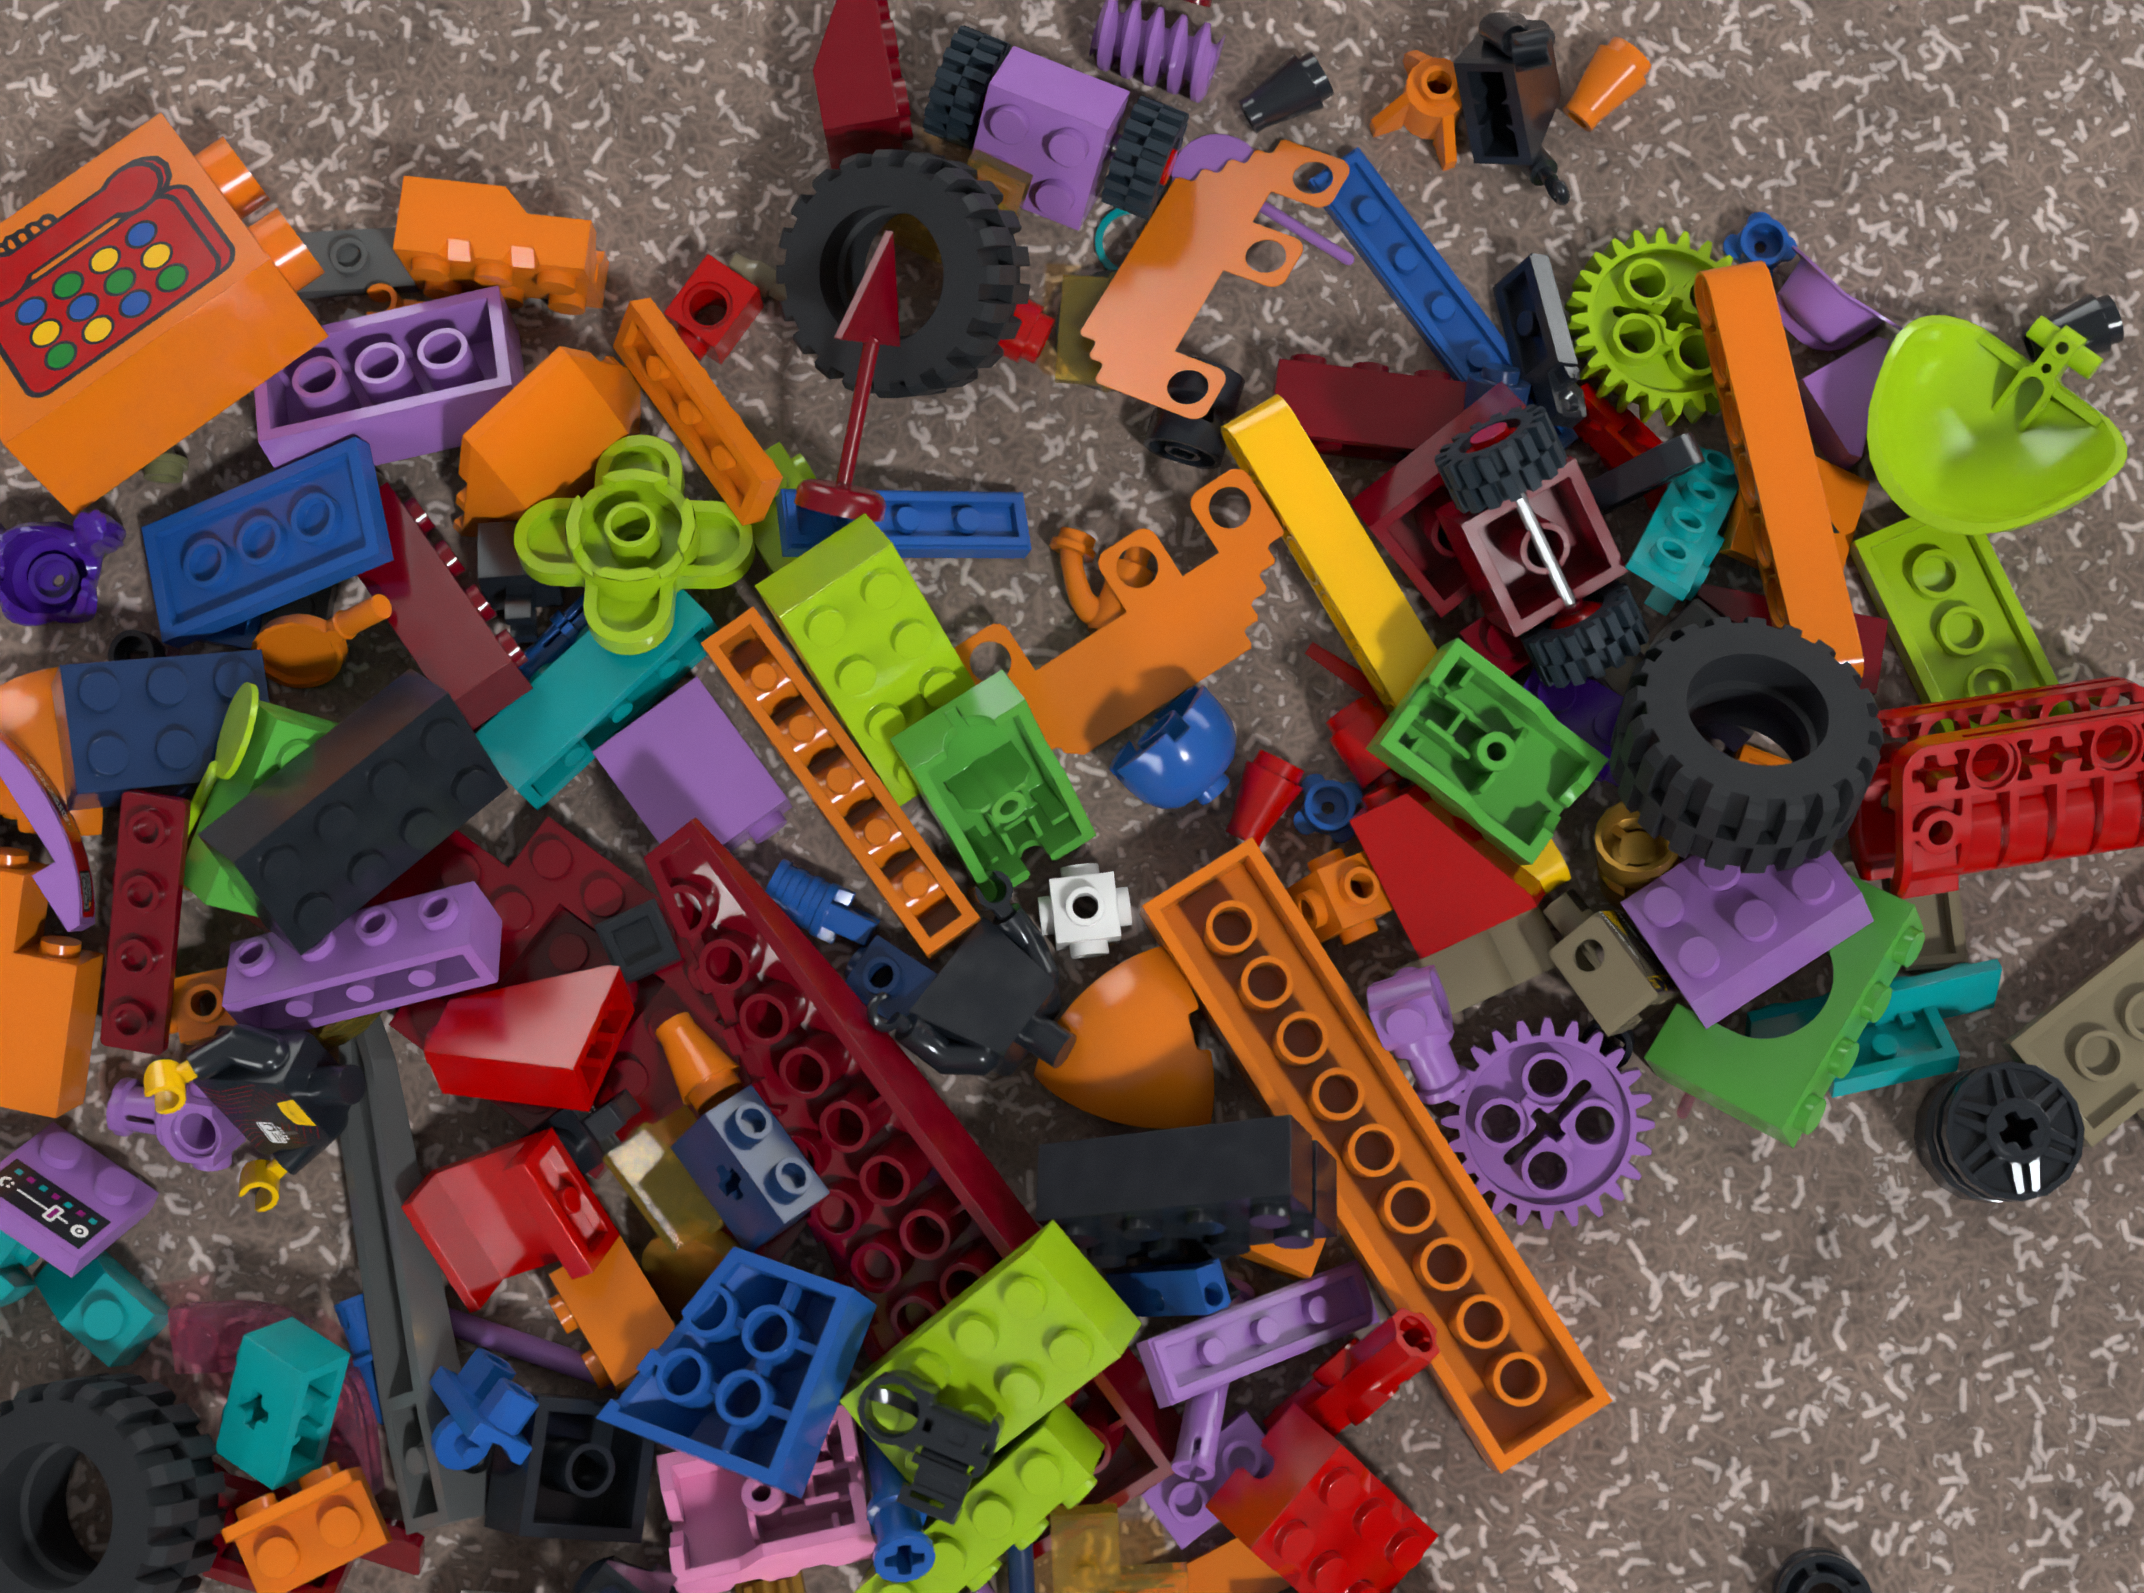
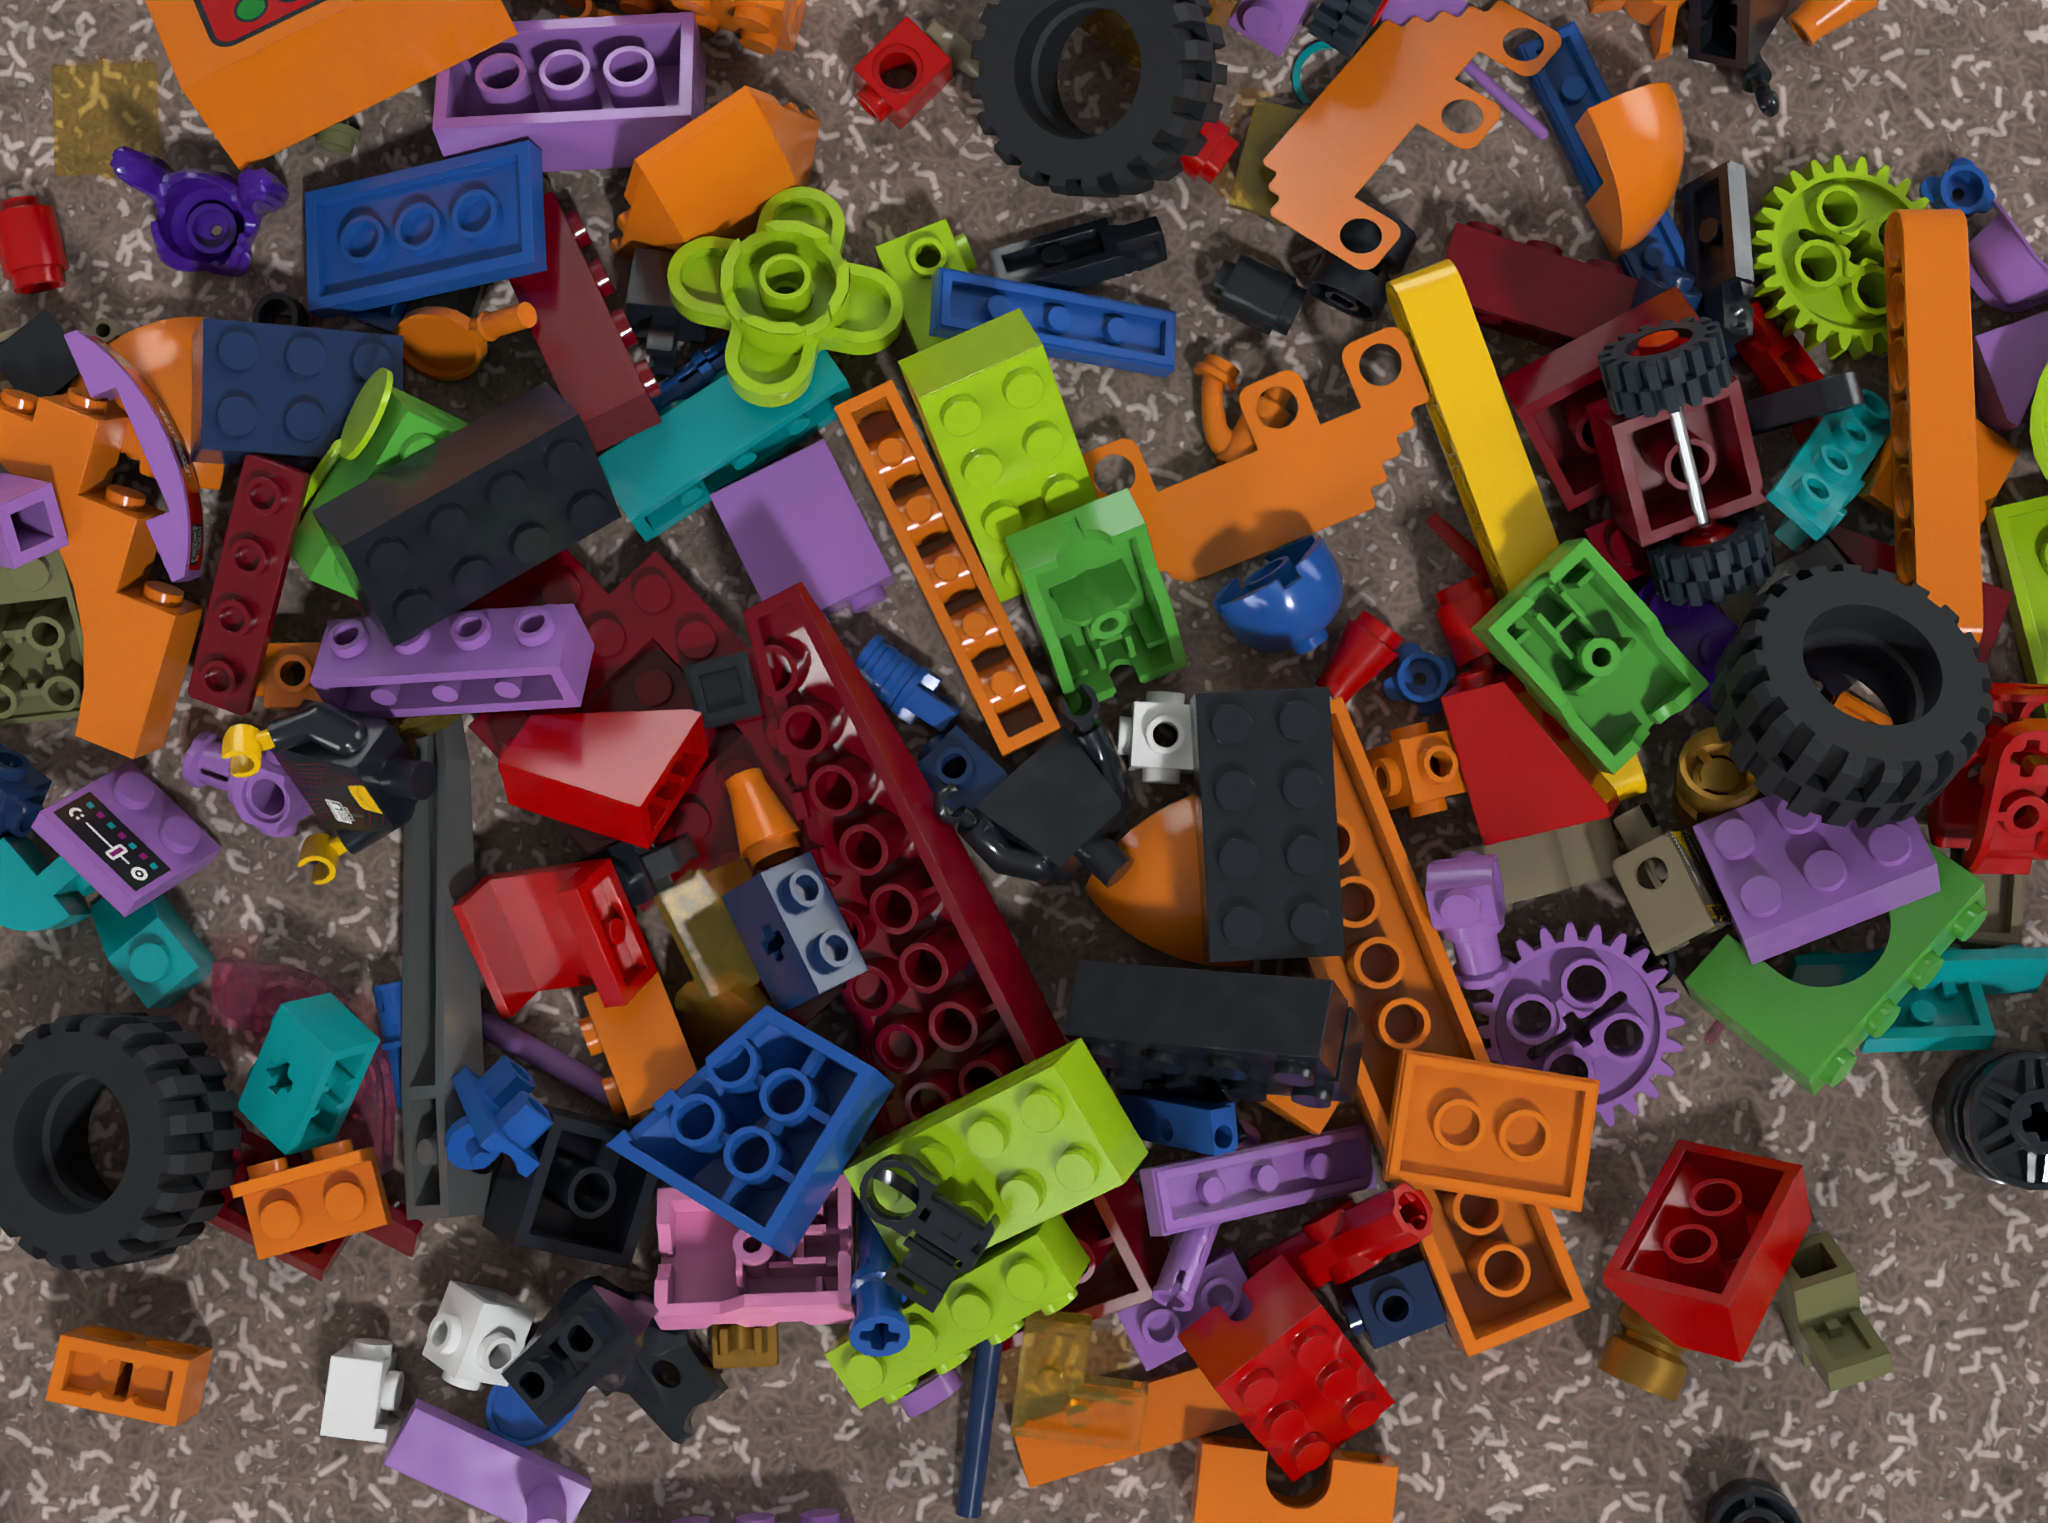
camera: 10 degrees right, 5 degrees up
(697, 411) = (869, 174): orange plate -> none
(874, 321) = (1062, 117): dark red piece -> none
(926, 451) = (1081, 254): none -> black hinge
(1099, 462) = (1257, 295): none -> black brick
(1200, 976) = (1266, 824): none -> black brick
(1416, 1434) = (1392, 1301): none -> dark blue brick
(1445, 266) = (1640, 157): none -> orange brick
(1479, 1240) = (1490, 1130): none -> orange tile
(1684, 1426) = (1644, 1357): none -> pearl gold wheel
(1721, 1317) = (1711, 1246): none -> red slope
(1847, 1364) = (1826, 1318): none -> olive brick

